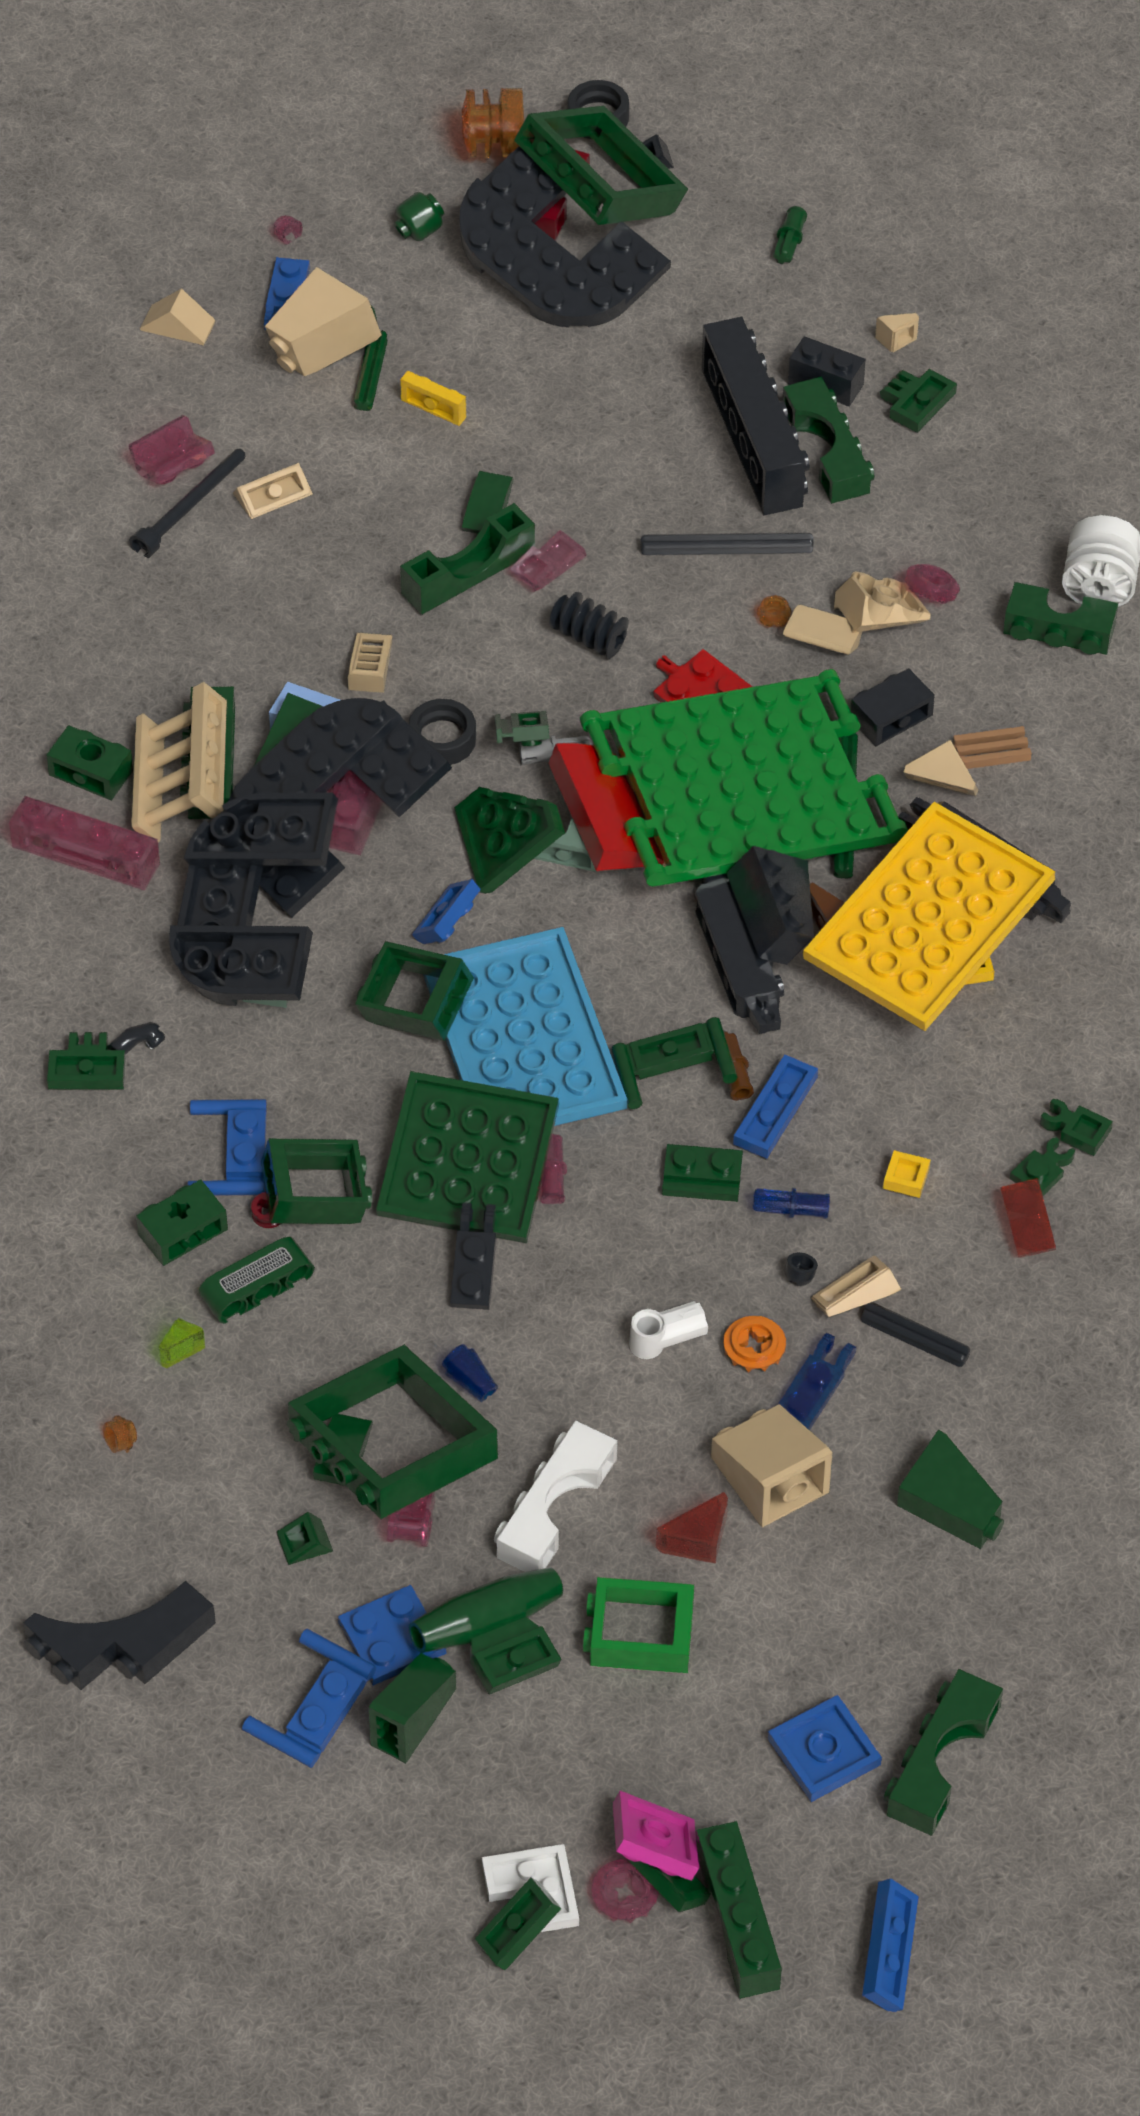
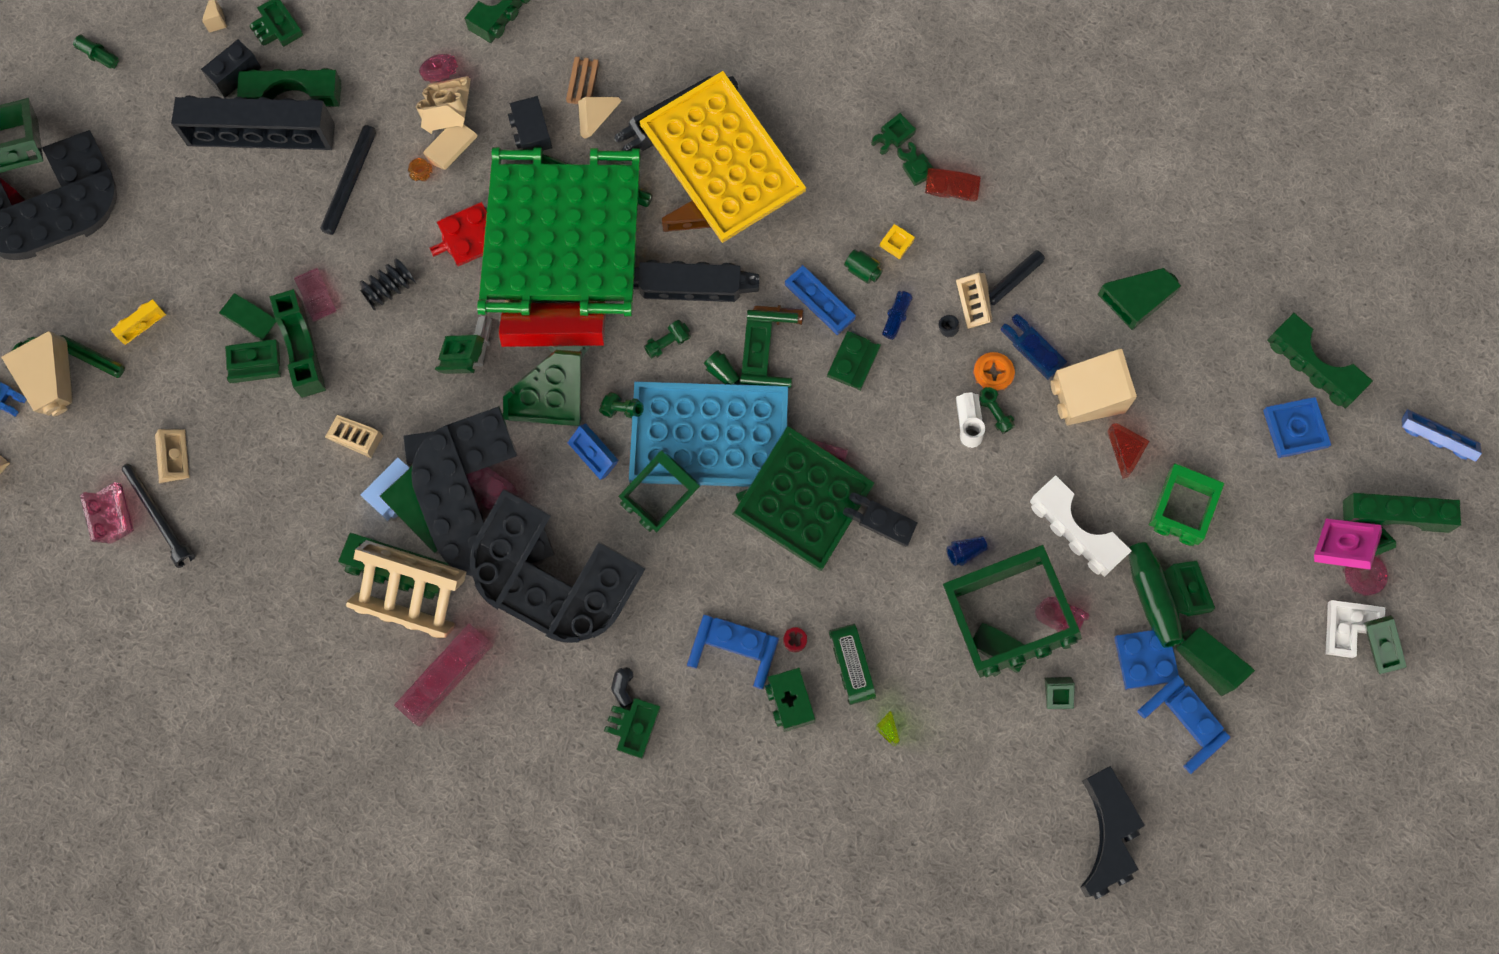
camera: 70 degrees left, 20 degrees up
(89, 762) = (386, 648): dark green brick -> none
(122, 1431) = (946, 789): clear orange plate -> none
(315, 1154) = (786, 625): dark green window -> none
(429, 526) = (253, 361): none -> dark green plate
(450, 711) = (430, 390): black tyre -> none
(520, 920) = (612, 404): none -> dark green bar
(625, 1019) = (721, 368): none -> dark green cone
(656, 960) = (678, 332): none -> dark green bar
(709, 1347) = (988, 399): none -> dark green bar
(774, 902) = (675, 244): black wedge -> none
(849, 1142) = (863, 266): none -> dark green brick

